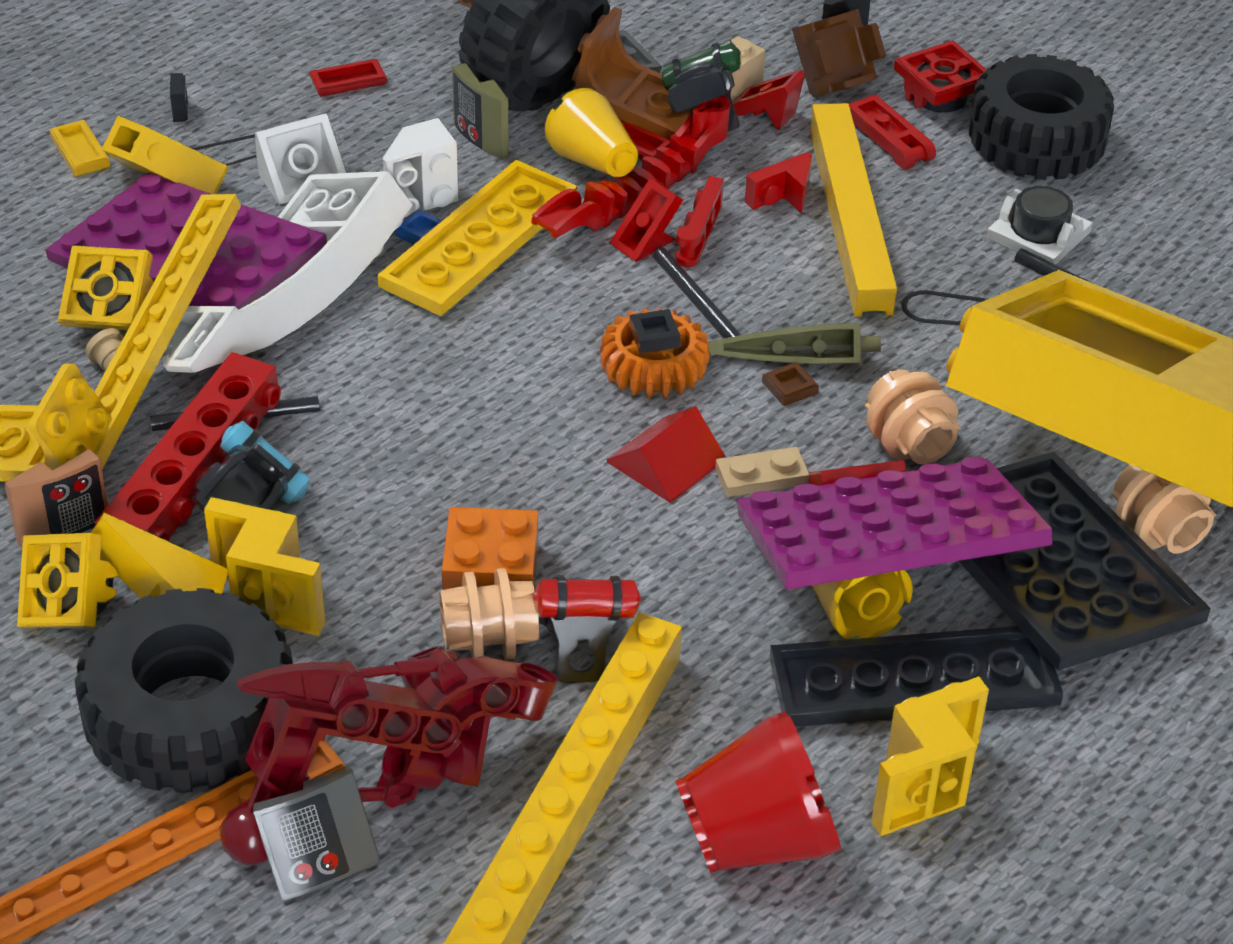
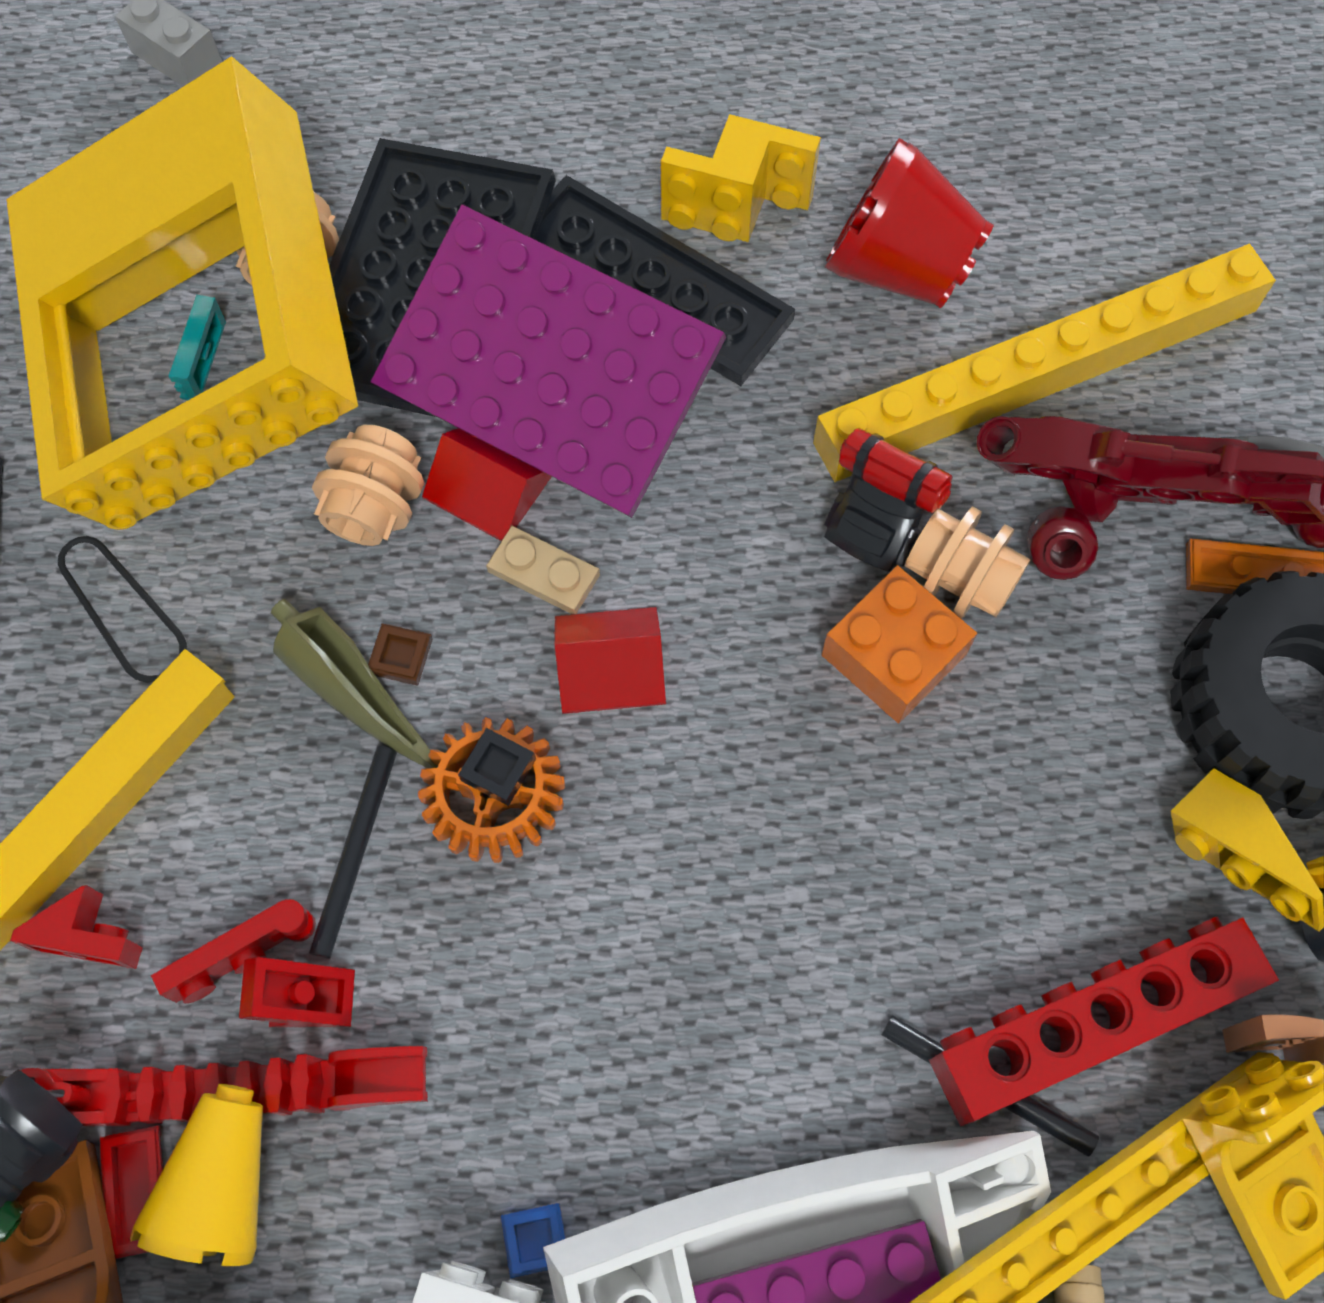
camera: 135 degrees left, 25 degrees up
(250, 473) = (1071, 916): black piece -> none
(266, 563) = (1126, 788): yellow bracket -> none
(472, 239) = (484, 1157): yellow plate -> none

